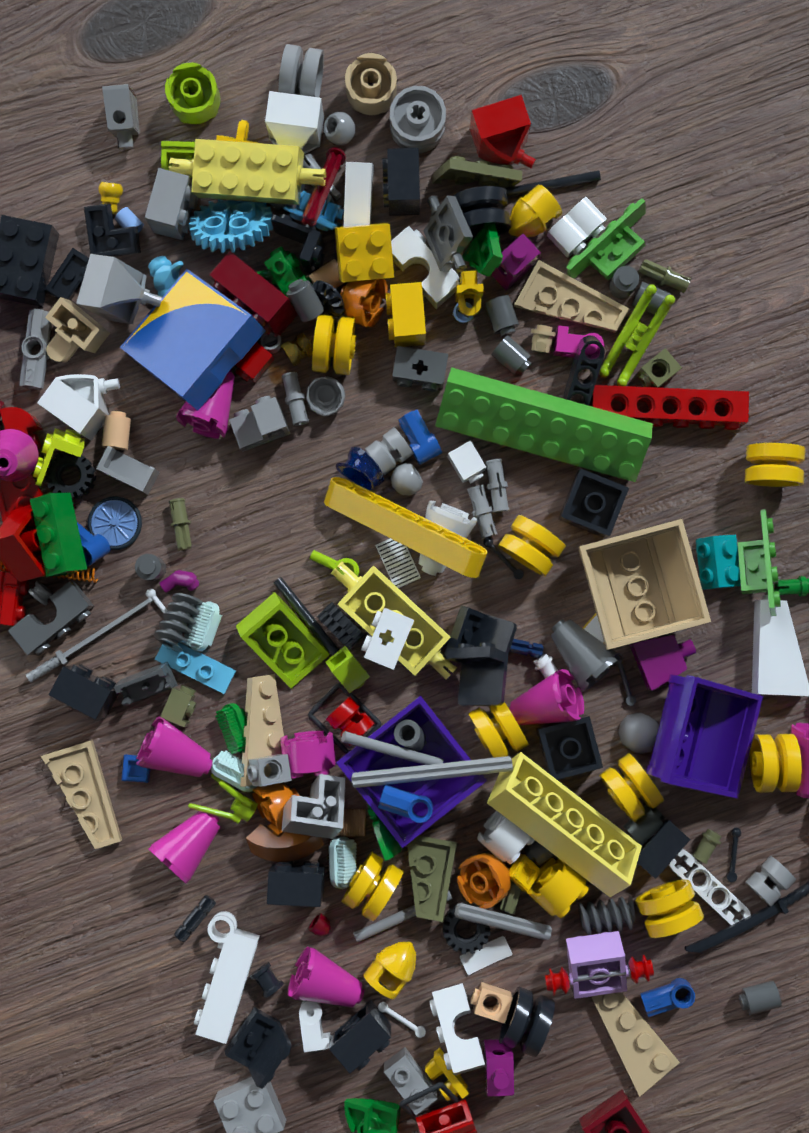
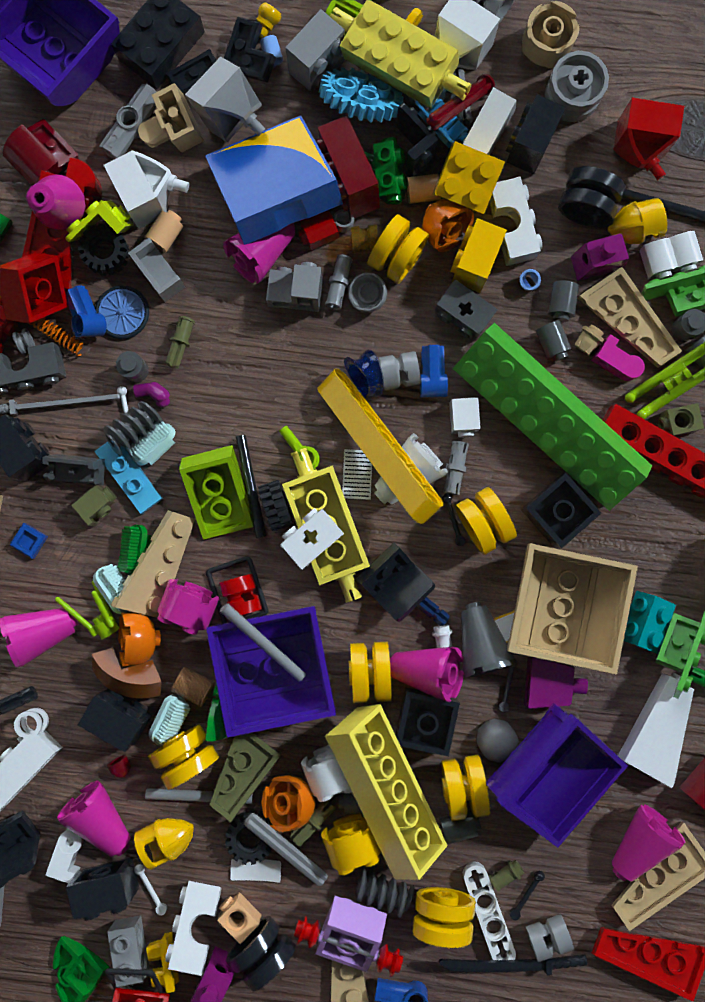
camera: 25 degrees right, 0 degrees up
(58, 534) = (62, 293): green brick -> none
(164, 273) = (279, 110): medium azure animal -> none
(172, 751) = (67, 542): dark pink cone -> none
(266, 980) = (46, 791): black bush -> none
(279, 770) = (153, 608): light grey brick -> none
(304, 300) = (392, 194): dark grey brick -> none
(319, 814) = (168, 667): light grey brick -> none
(329, 297) = (414, 204): black gear -> none
(339, 128) = (501, 60): light grey piece -> none
(347, 669) = (262, 548): lime brick -> none
(402, 803) = (247, 696): blue piece -> none
(406, 479) = (402, 404): light grey piece -> none
(410, 735) = (286, 637): dark grey brick -> none
(432, 772) = (289, 681): light grey axle -> none
(447, 233) = (553, 199): dark grey plate -> none
(467, 172) = (597, 154): olive wing -> none
(469, 289) = (546, 262): yellow hips -> none
(481, 674) = (380, 614): black bracket -> none
(485, 250) = (578, 232): green wing -> none
(497, 485) = (481, 451): light grey pin -> none
(524, 872) = (327, 815): yellow tile -> none
(583, 361) = (614, 376): black beam -> none
(662, 849) = (465, 858): black hinge -> none
(775, 763) = (609, 833): yellow wheel -> none

